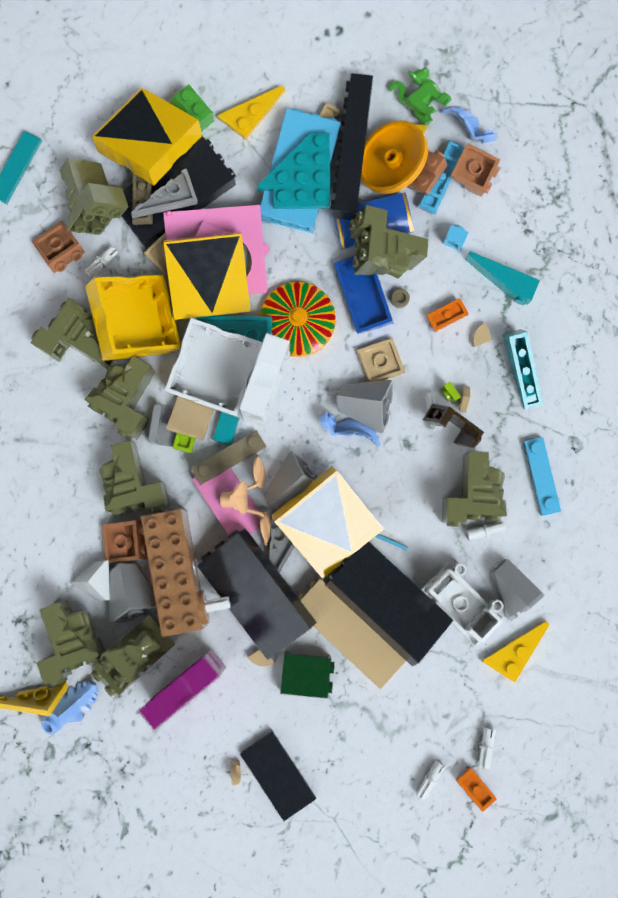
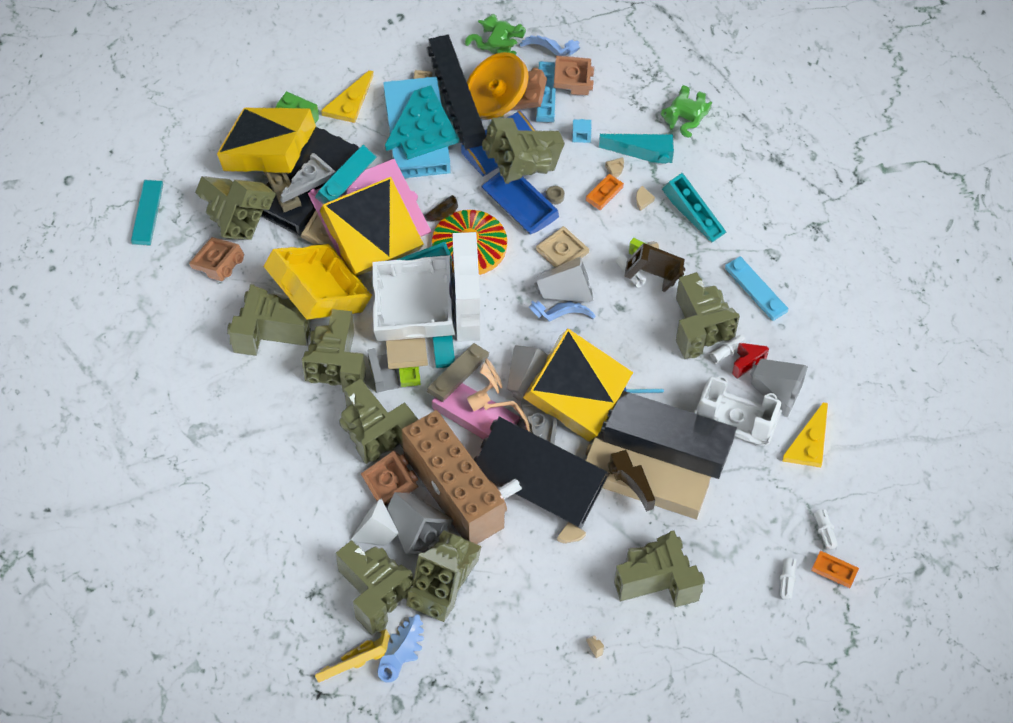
camera: 20 degrees left, 25 degrees down
(101, 261) = (261, 257): white axle -> none
(182, 689) = (509, 568): magenta tile -> none
(204, 210) = (346, 175): none -> teal slope
(278, 776) = (638, 634): black tile -> none
(289, 274) = (443, 210): none -> dark brown tile
(307, 675) = (621, 528): dark green panel -> none
(318, 729) = (658, 568): none -> olive brick
(328, 622) = (634, 477): none -> dark brown slope
(470, 290) = (615, 167): none -> tan tile
(503, 548) = (749, 355): none -> red slope
(569, 253) = (688, 109): none -> bright green animal

